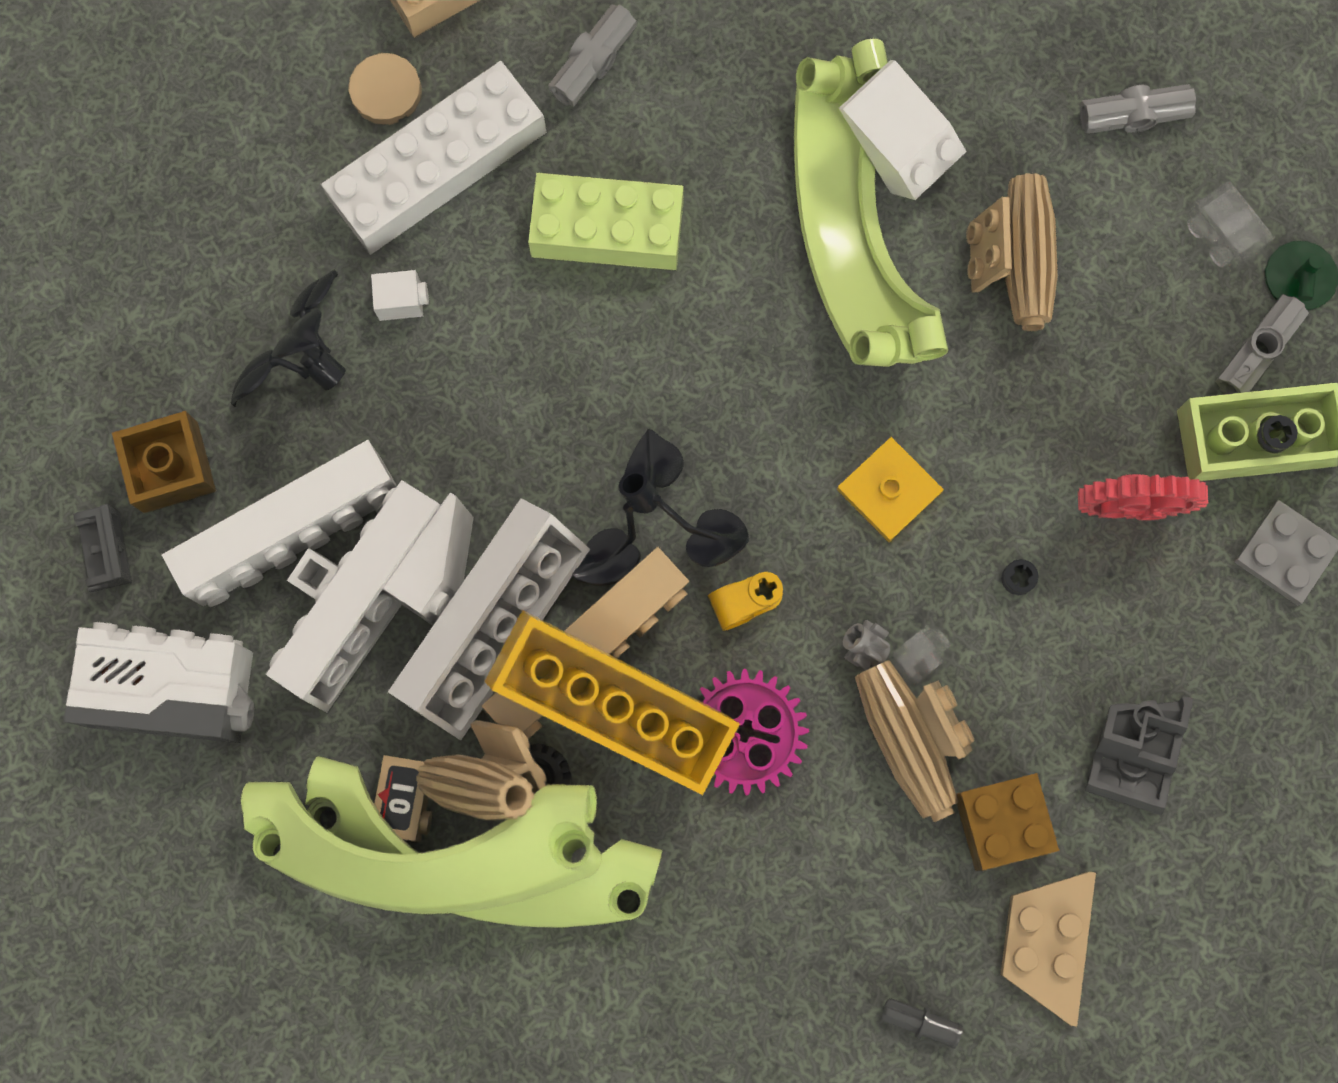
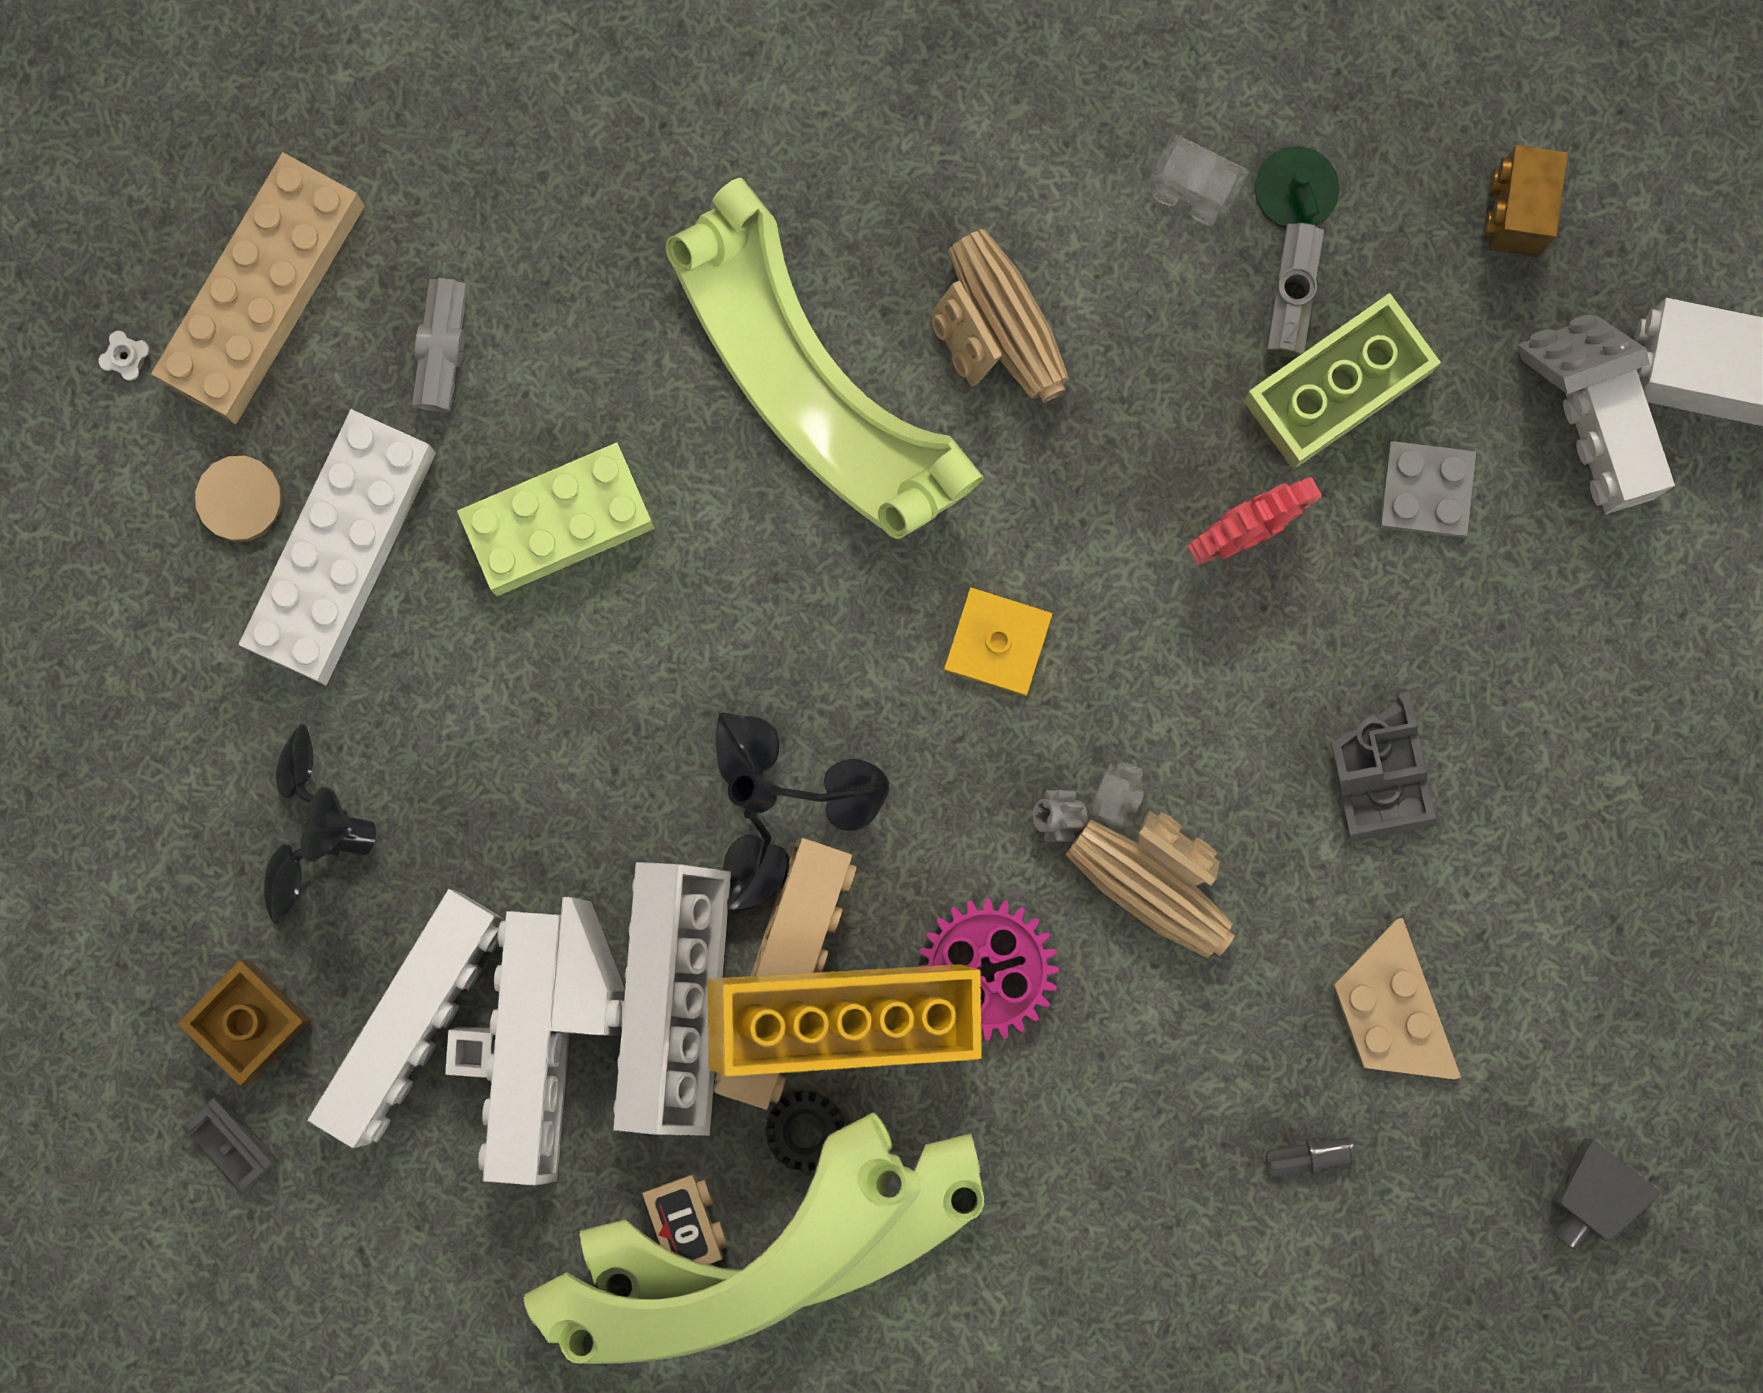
camera: 30 degrees left, 5 degrees up
(160, 683) = (378, 1247): white piece -> none
(398, 295) = (384, 714): white brick -> none
(487, 787) = (772, 1168): tan plate -> none
(739, 603) = (911, 843): yellow piece -> none
(902, 131) = (812, 263): white slope -> none
(1006, 822) = (1290, 917): pearl gold brick -> none
(1009, 571) = (1189, 661): black bush -> none
(1137, 108) = (1038, 99): light grey piece -> none
(1280, 423) = (1356, 395): black bush -> none

